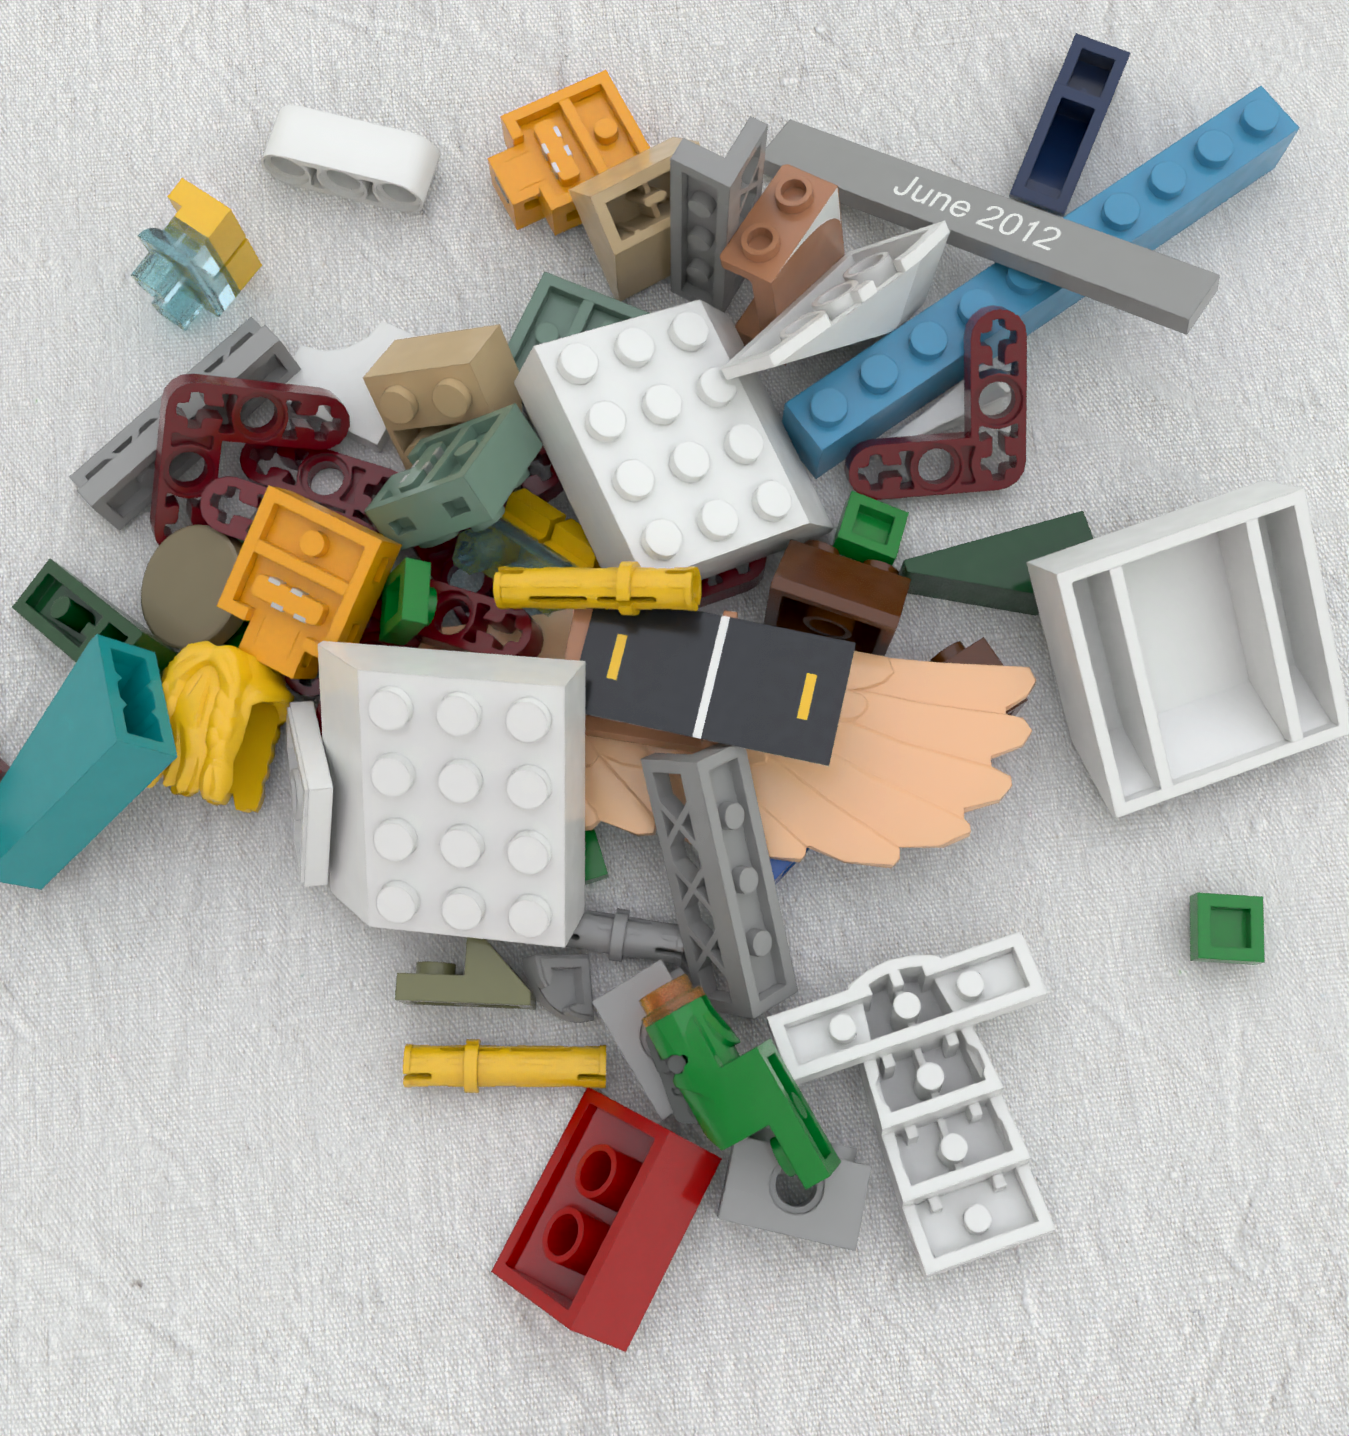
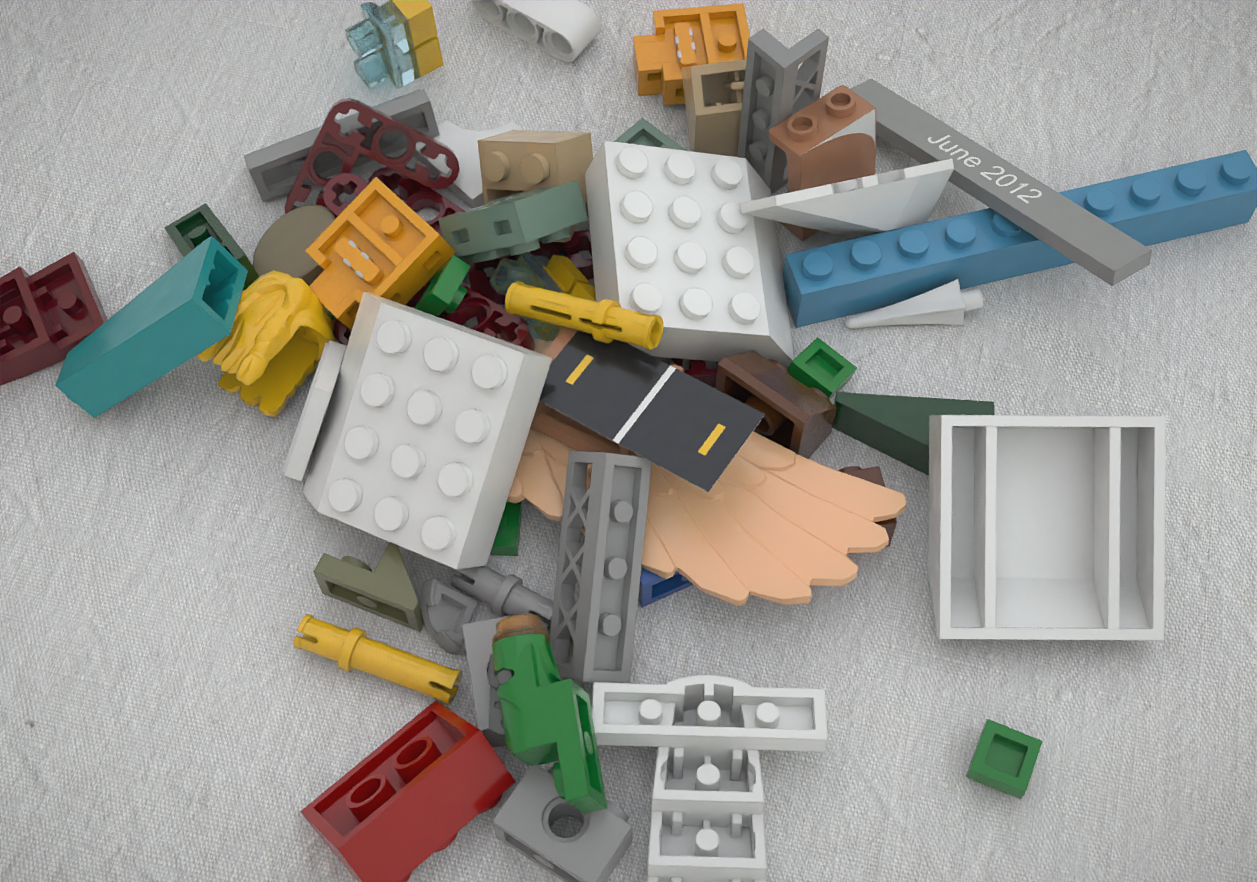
camera: 20 degrees right, 15 degrees down
(966, 447) = (920, 335): dark red beam -> none
(1069, 124) = (1091, 137): dark blue slope -> none

